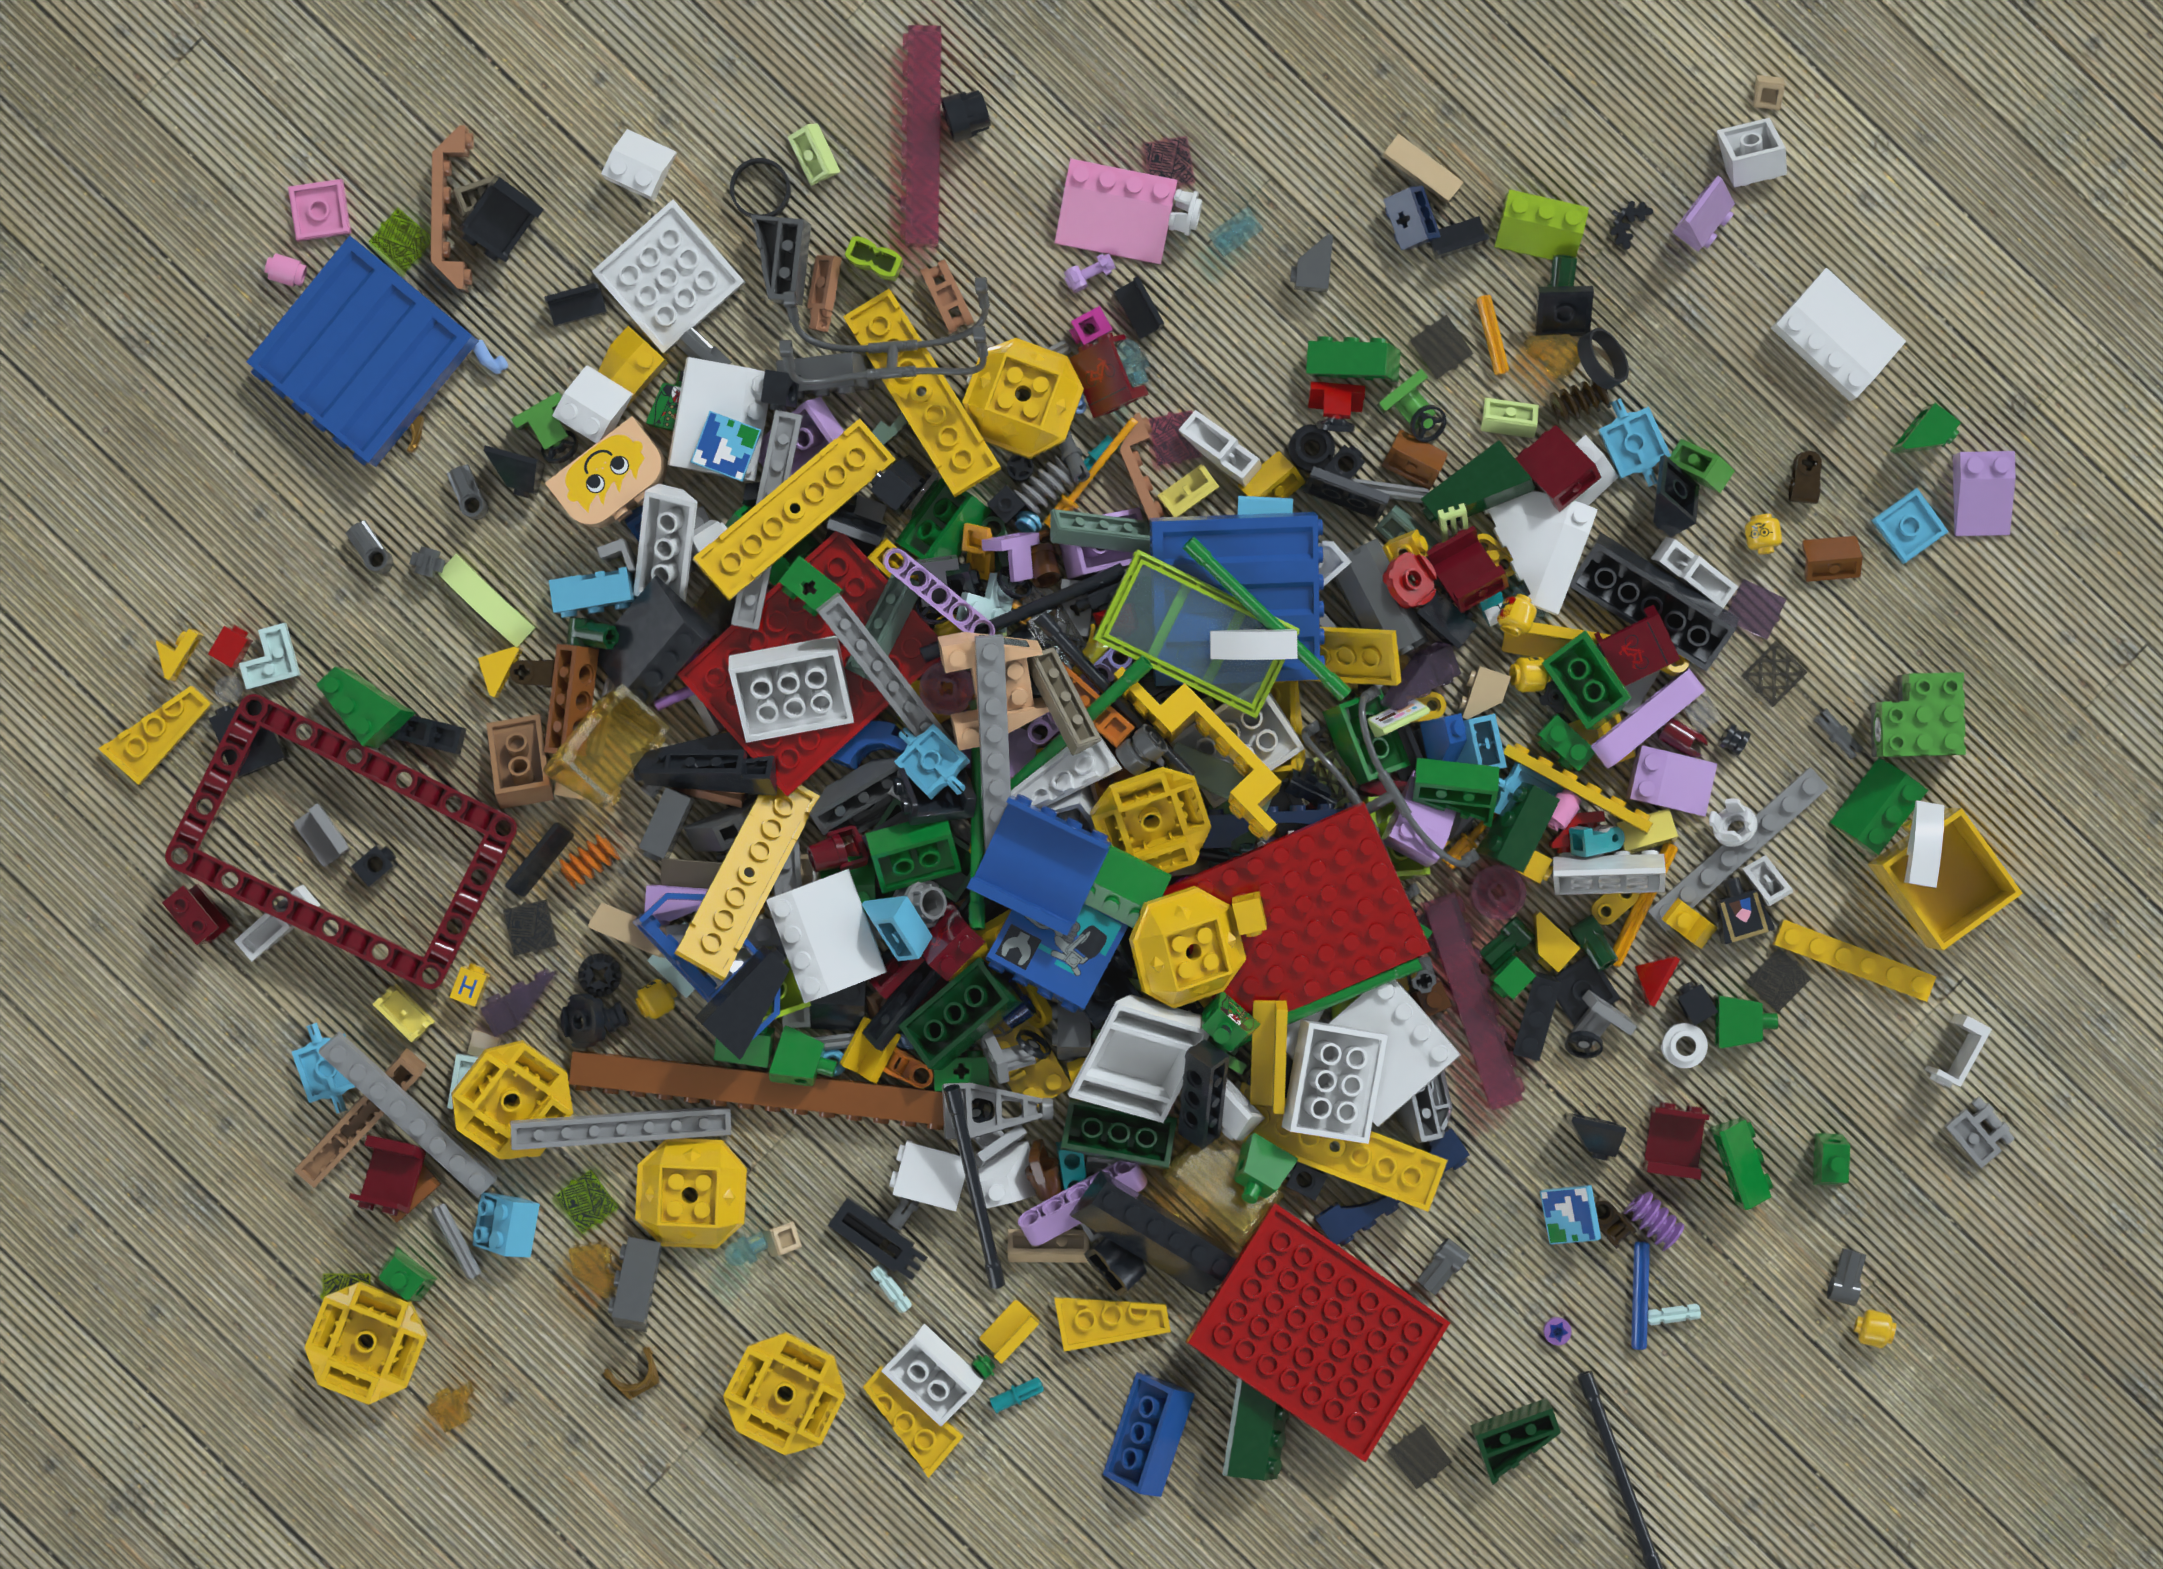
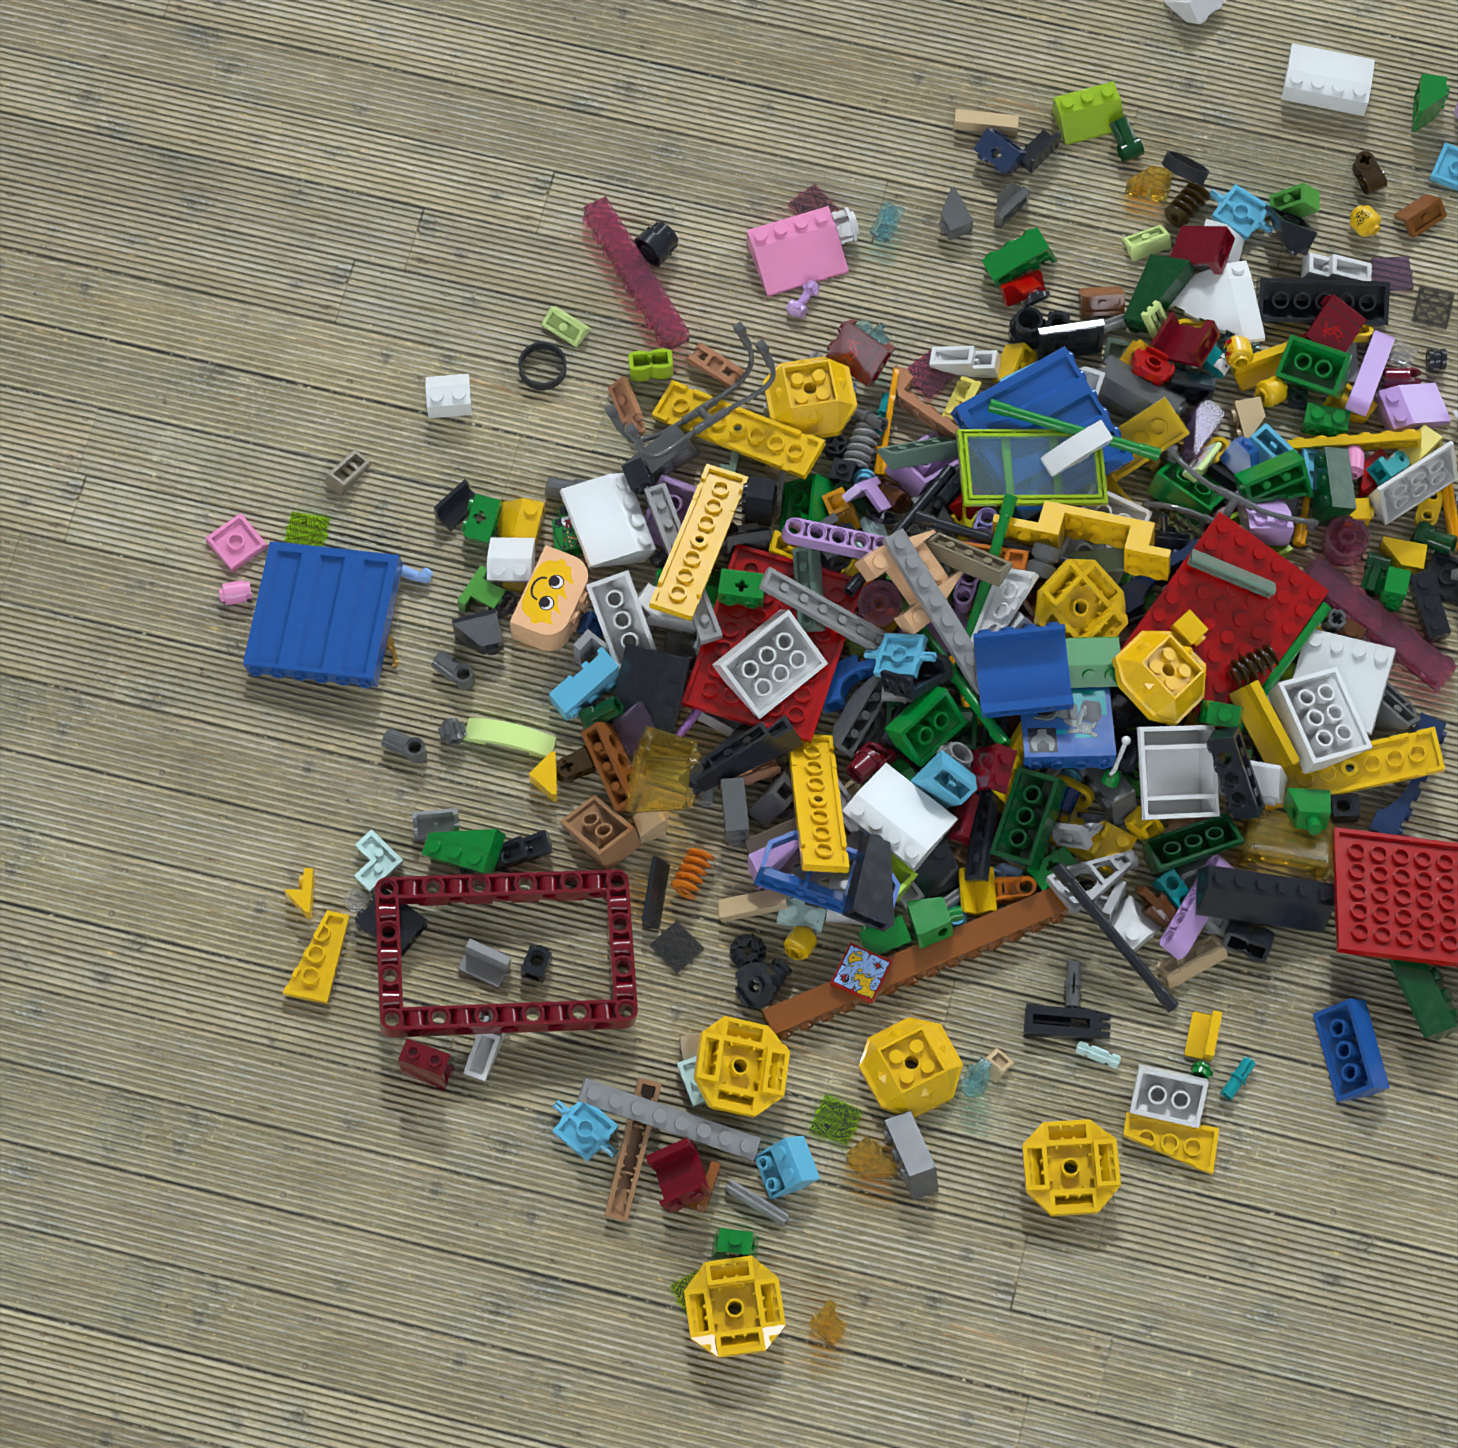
camera: 30 degrees left, 20 degrees down
(231, 646) = (341, 867): red brick -> none
(355, 655) = (434, 821): none -> light grey hinge
(404, 1013) = (619, 1058): light yellow hinge -> none
(455, 145) = (356, 529): nougat slope -> none
(470, 985) = (657, 1008): yellow brick -> none
(499, 219) = (370, 476): black panel -> none
(514, 1008) = (698, 1008): clear purple slope -> none
(605, 333) = (491, 510): none -> green brick
(614, 668) = (632, 725): none -> clear purple piece
(620, 1127) = (830, 1042): light grey plate -> none
(648, 1382) = (954, 1237): pearl gold helmet -> none
(668, 276) = (512, 453): white plate -> none
(693, 1073) = (861, 973): none -> tile
(726, 446) = (624, 530): tile -> none
(783, 254) = (583, 393): dark grey wedge -> none
(928, 1176) = (1075, 954): white panel -> none
(1077, 1018) = (1112, 776): none -> hinge
(1097, 320) = (826, 326): dark pink brick -> none
(1101, 1322) = (1264, 991): yellow wing -> none
(1139, 308) = (852, 302): black panel -> none
(1293, 989) = (1252, 664): none -> dark brown piece
(1333, 879) = (1231, 573): none -> sand green slope
(1384, 287) = (1009, 203): none -> dark grey slope
(1415, 408) = (1077, 269): bright green piece -> none
(1441, 347) = (1072, 223): clear smoke piece -> none
(1492, 334) = (1101, 197): light orange axle -> none
(1564, 310) = (1139, 152): black tile -> none
(1619, 227) = (1143, 78): black animal -> none
(1705, 215) = (1192, 47): lavender slope -> none

